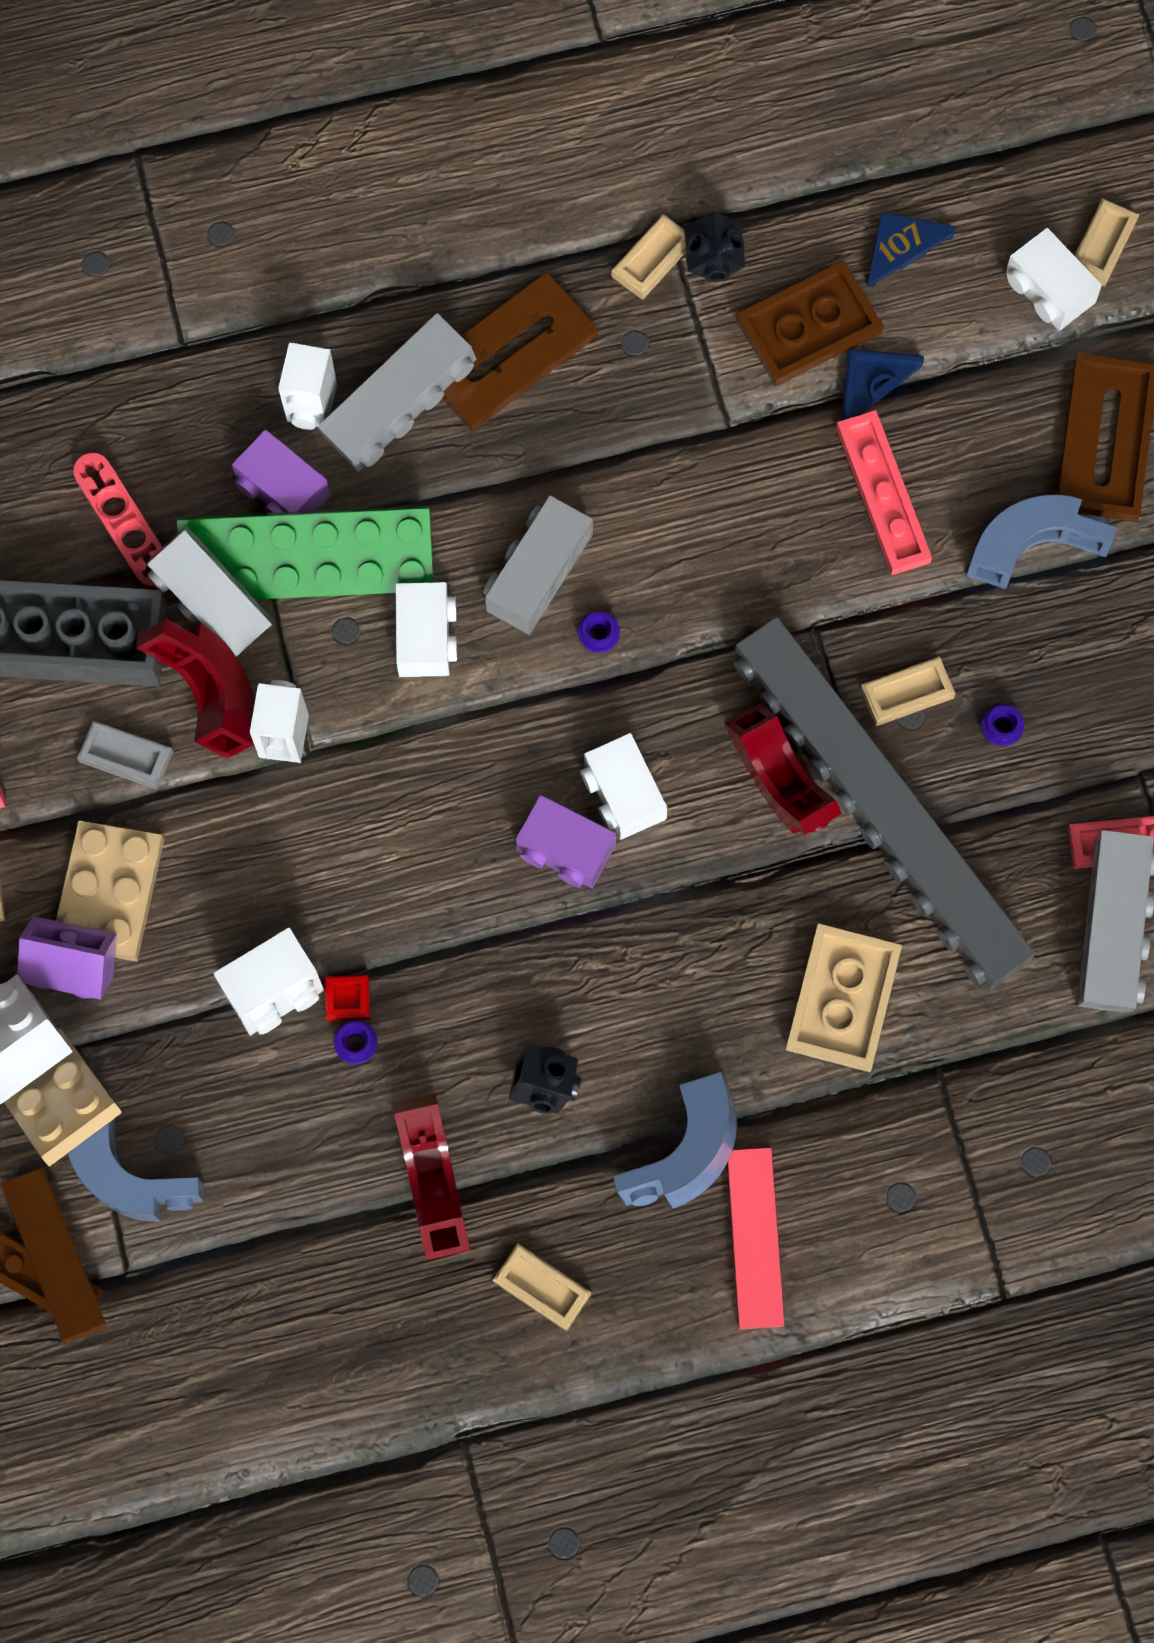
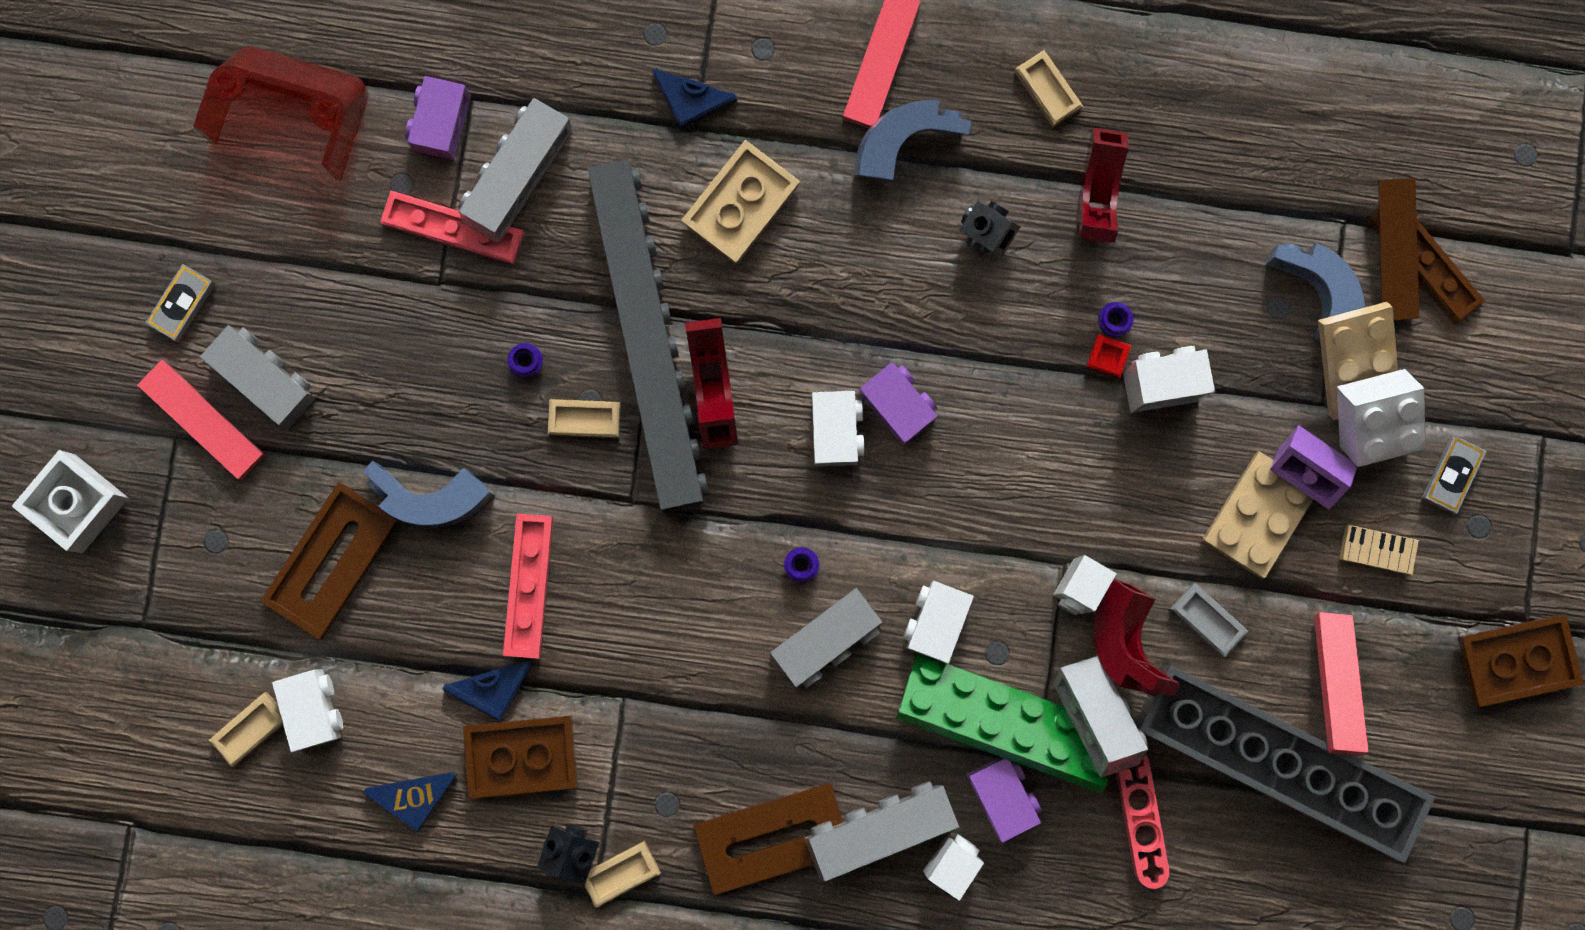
camera: 160 degrees left, 10 degrees up
(959, 1098) = (691, 99): none -> dark blue tile

